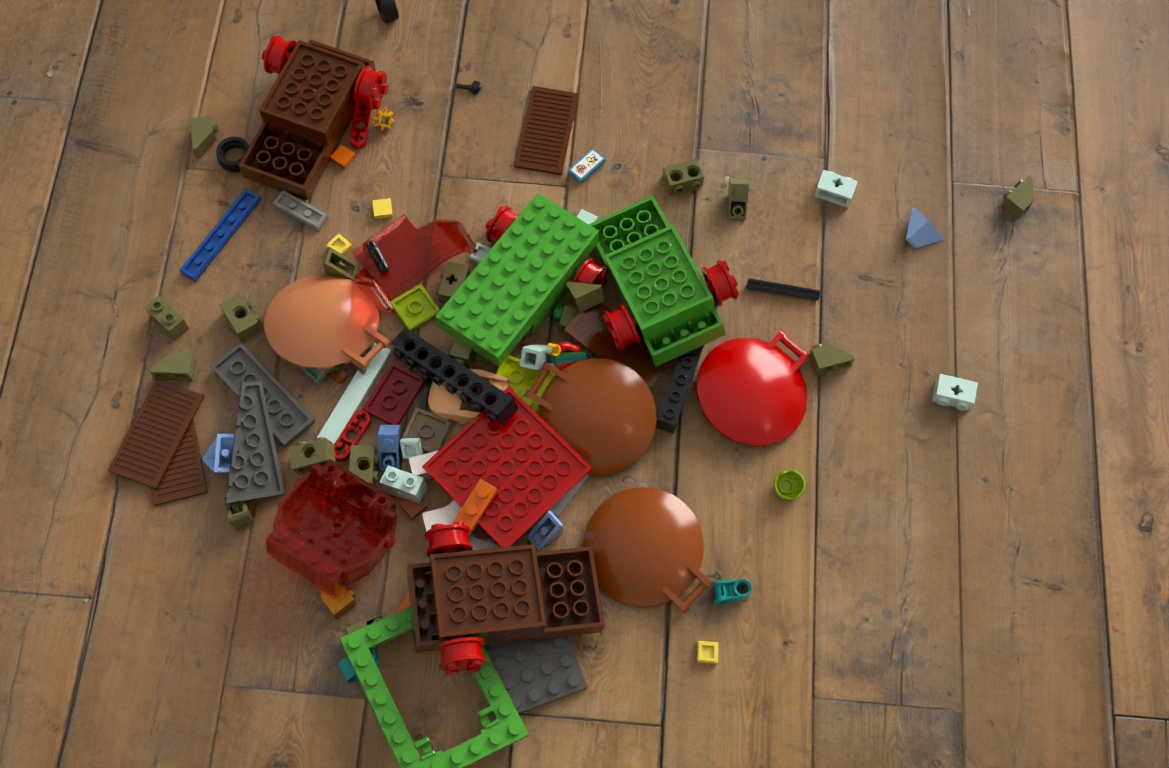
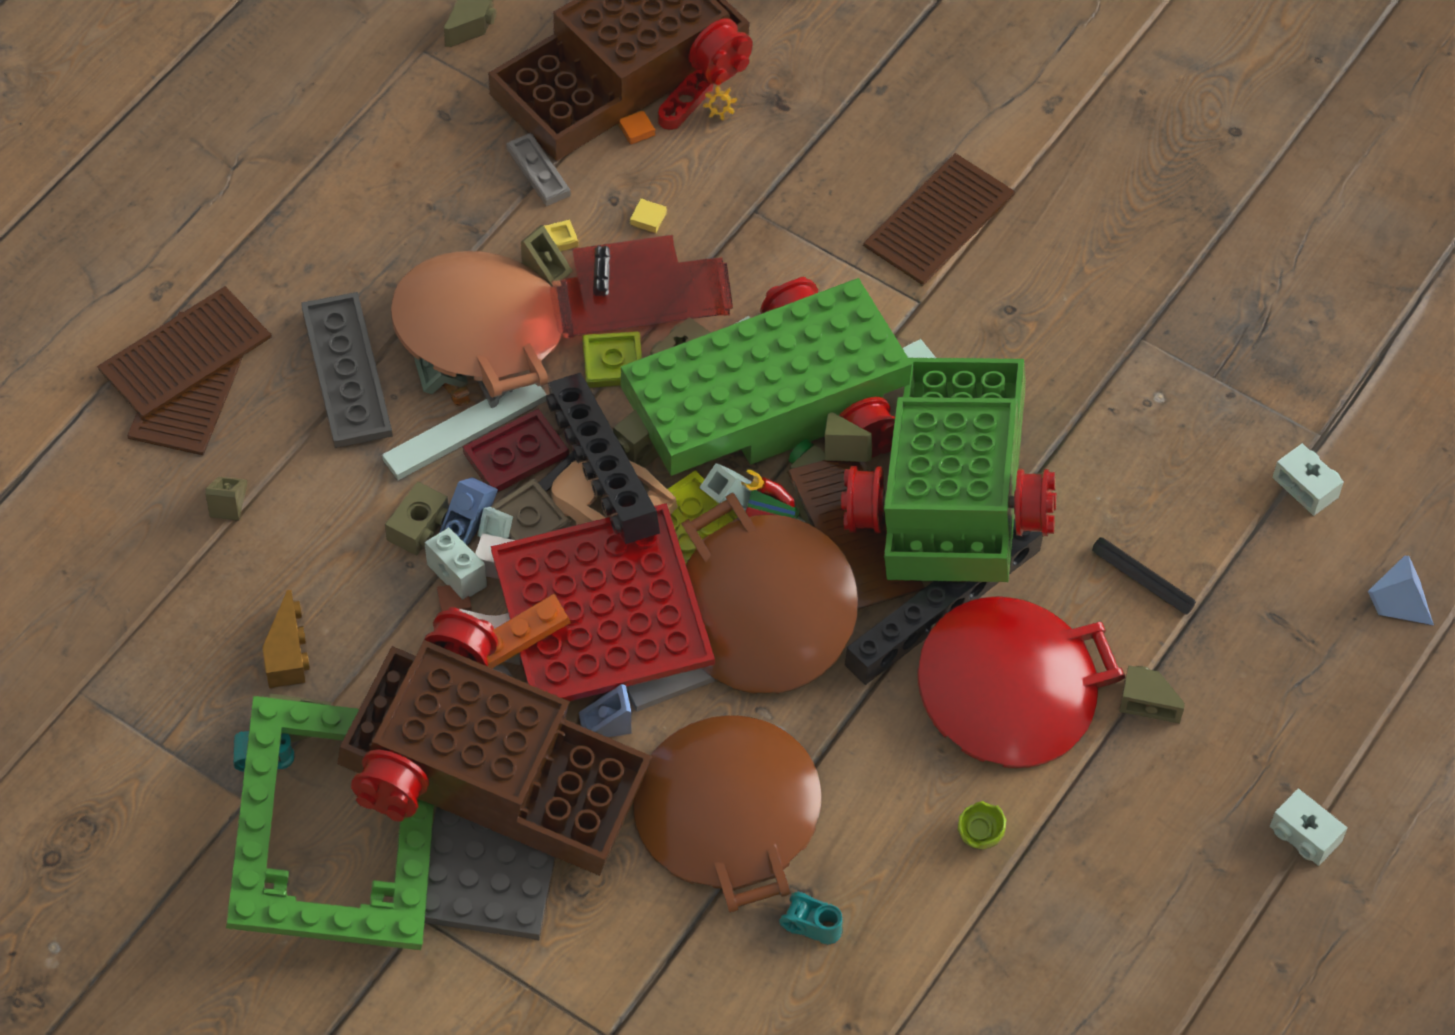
camera: 30 degrees right, 10 degrees down
(166, 317) = (283, 219): olive brick -> none
(175, 367) = (257, 283): olive slope -> none
(219, 453) = (252, 414): light blue slope -> none
(220, 235) = (415, 152): blue tile -> none
(224, 146) = (488, 45): black tyre -> none
(234, 309) = (376, 262): olive brick -> none
(254, 459) = (283, 440): dark grey wing -> none
(302, 452) = (361, 472): olive brick -> none
(310, 513) = (305, 539): clear red piece -> none
(339, 445) = (433, 463): red beam -> none
(473, 88) = (869, 119): black hand -> none
(586, 165) = (965, 288): tile -> none
(681, 173) = (1093, 359): olive brick -> none
(707, 652) = (730, 979): light yellow tile -> none
(737, 198) = (1153, 426): olive slope -> none

